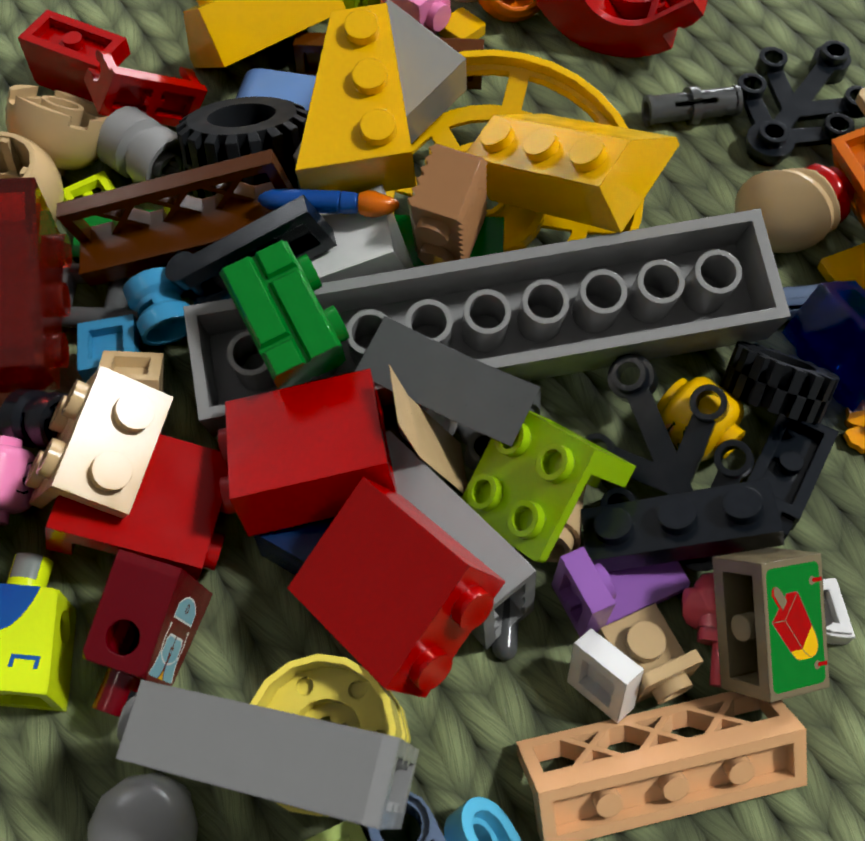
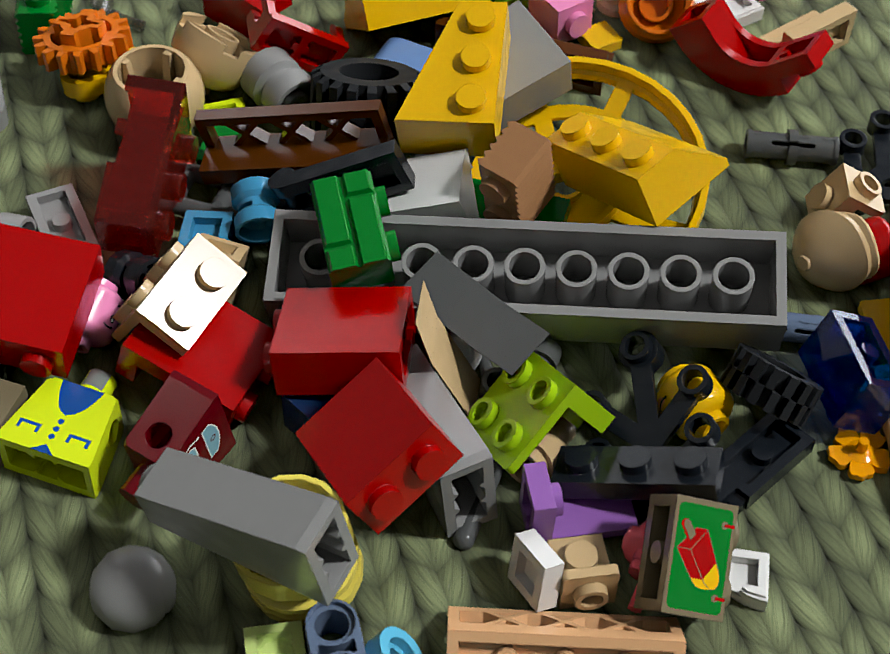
camera: 15 degrees right, 10 degrees down
(367, 203) = (447, 159): blue piece -> none
(768, 147) = (847, 191): none -> tan bracket

